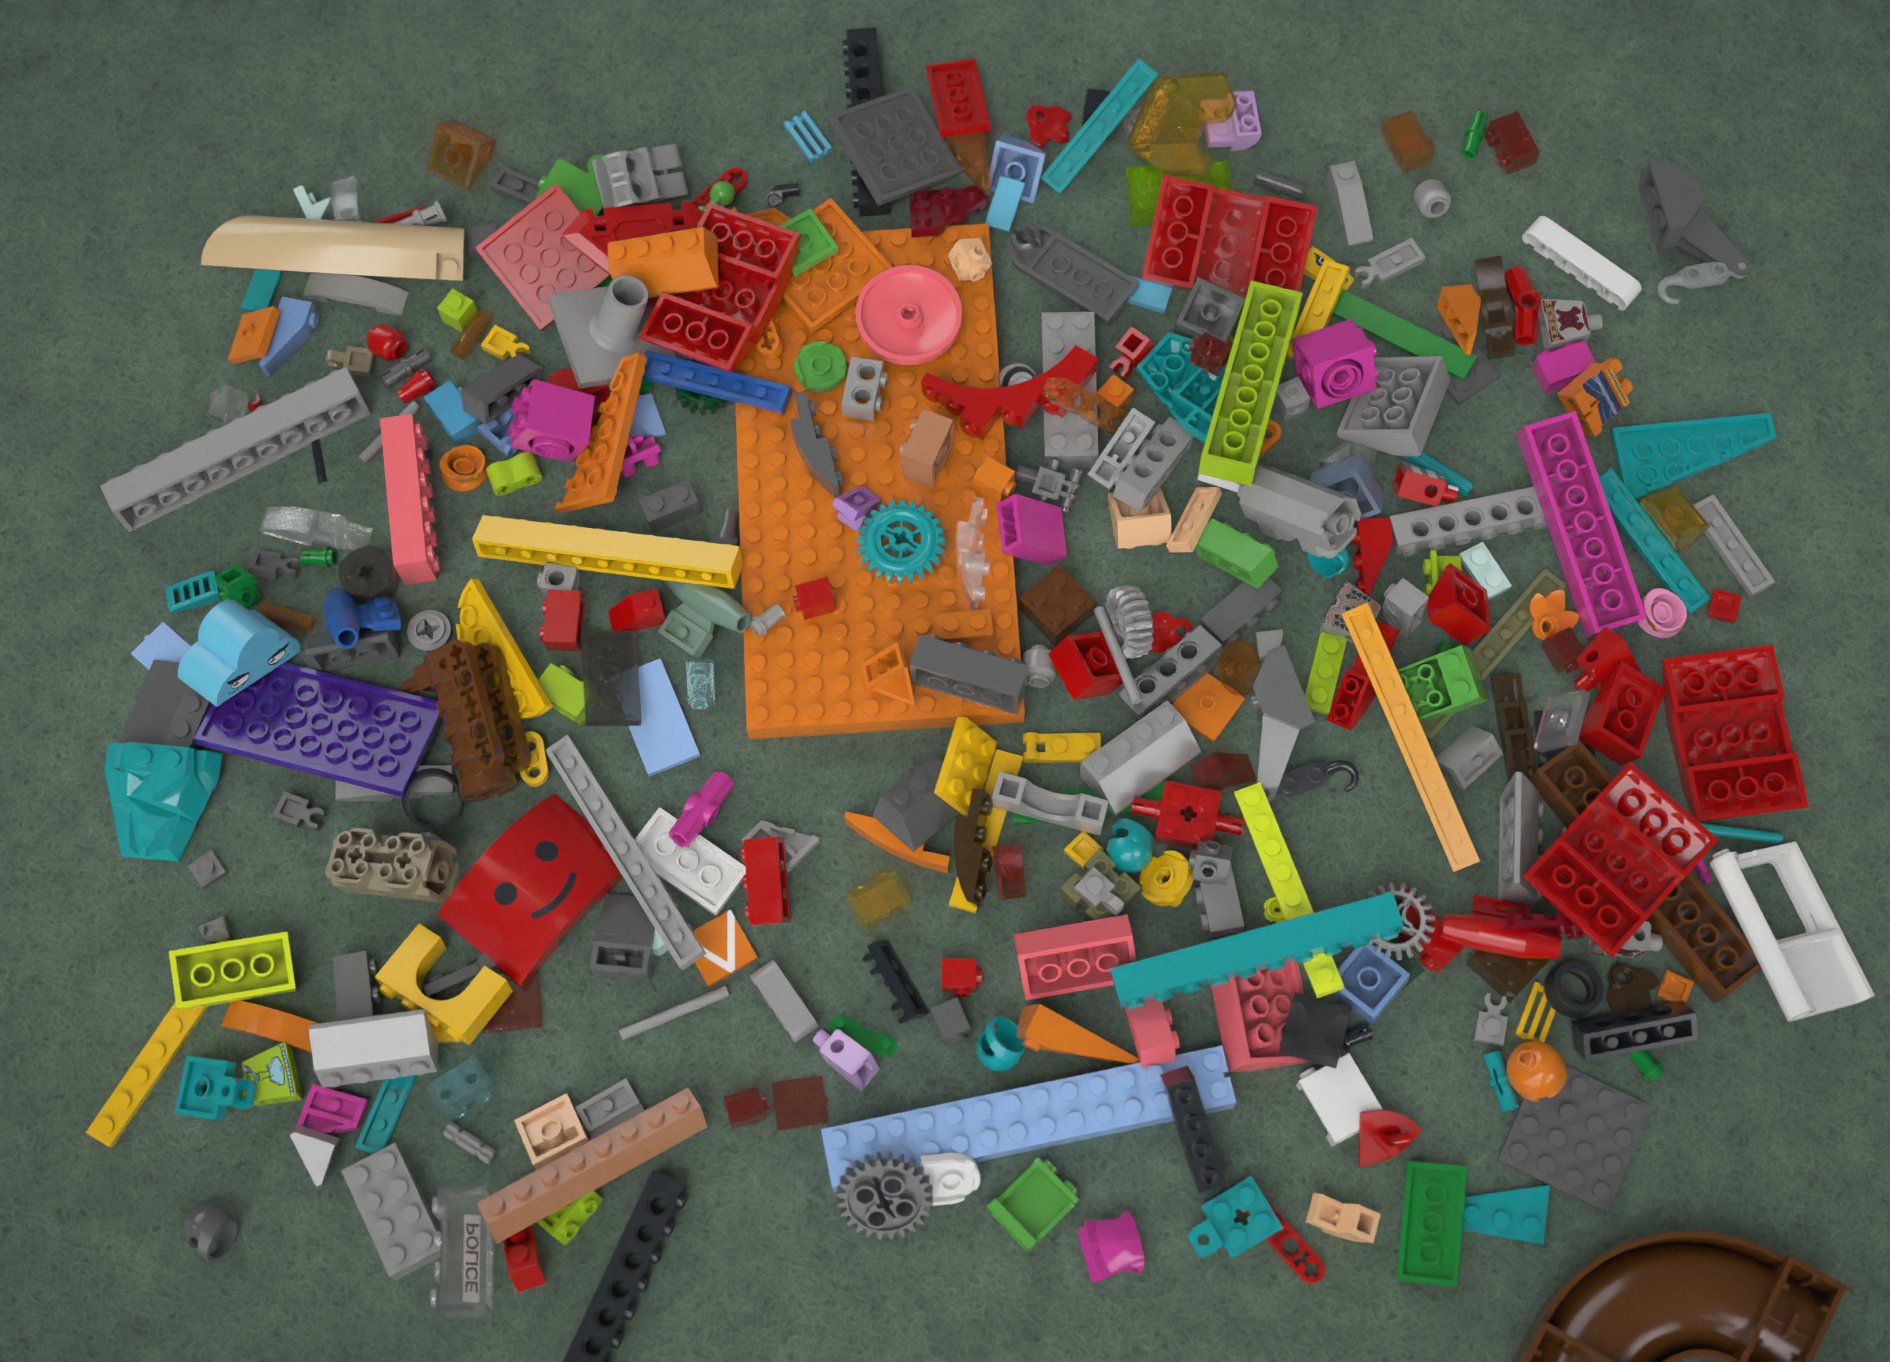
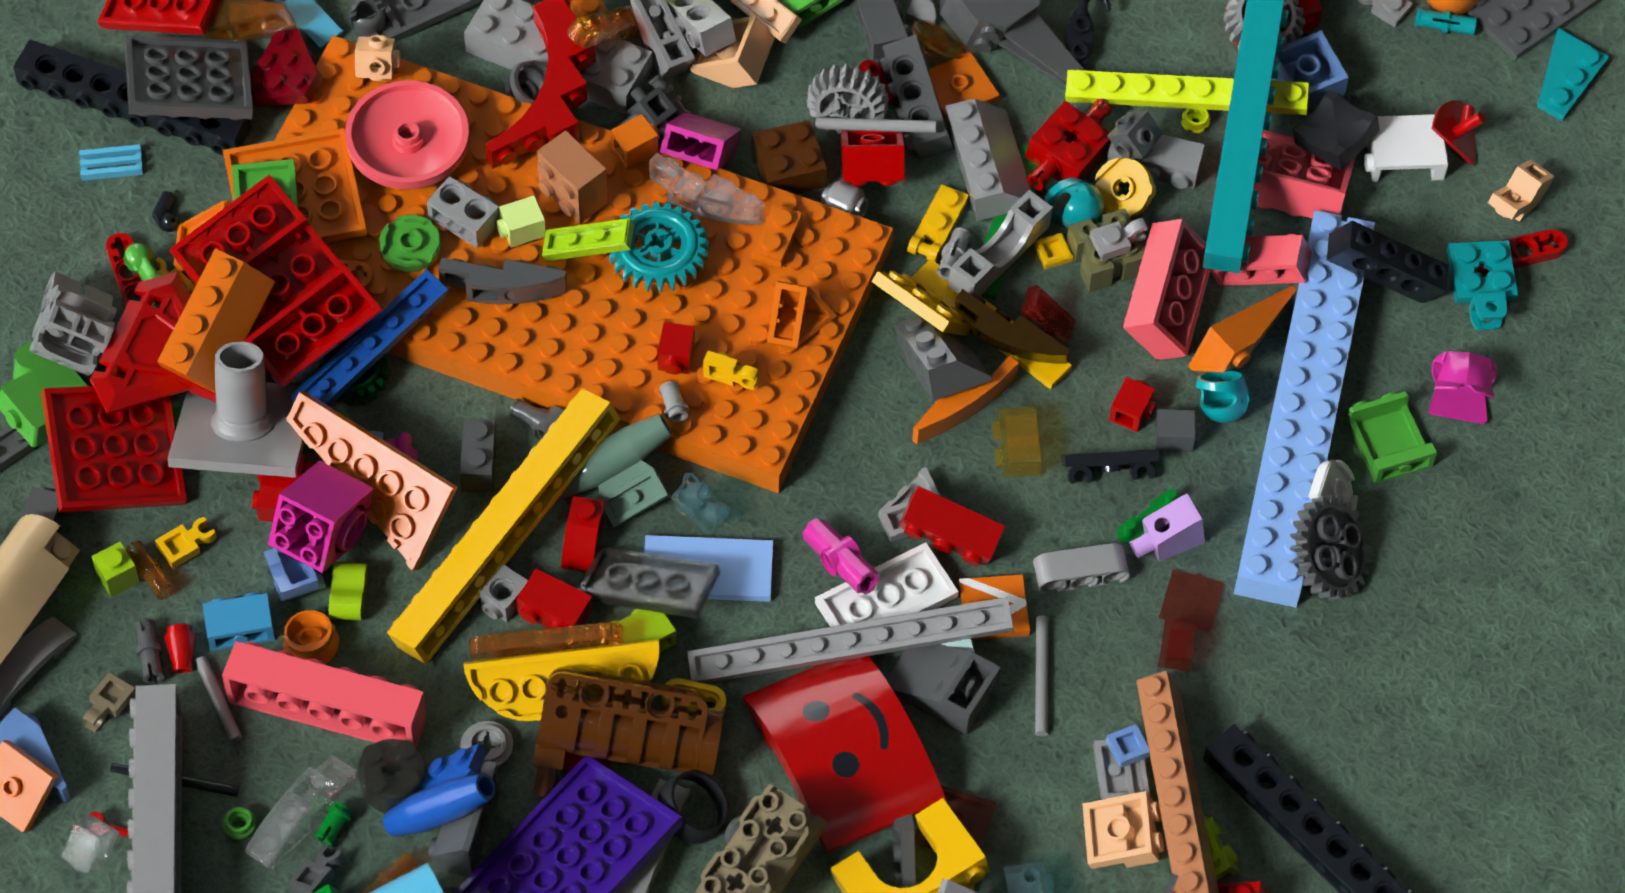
camera: 70 degrees left, 10 degrees down
(290, 488) = (235, 815): none -> bright green plate
(386, 342) = (109, 654): red head -> none
(498, 388) = (245, 555): dark grey brick -> none
(524, 629) = (545, 640): none -> clear orange beam
(625, 1105) = (1128, 746): none -> medium blue plate
(815, 640) = (725, 369): none -> yellow plate
(856, 506) = (594, 274): medium lavender slope -> none
(875, 433) = (521, 221): none -> yellowish green brick
(879, 488) = (588, 239): none -> lime tile
(969, 673) = (842, 239): dark grey brick -> none
(1036, 771) = (957, 244): none -> light grey pin
(1222, 771) = (1036, 102): clear red slope -> none
(1432, 1224) = (1555, 128): green plate -> none

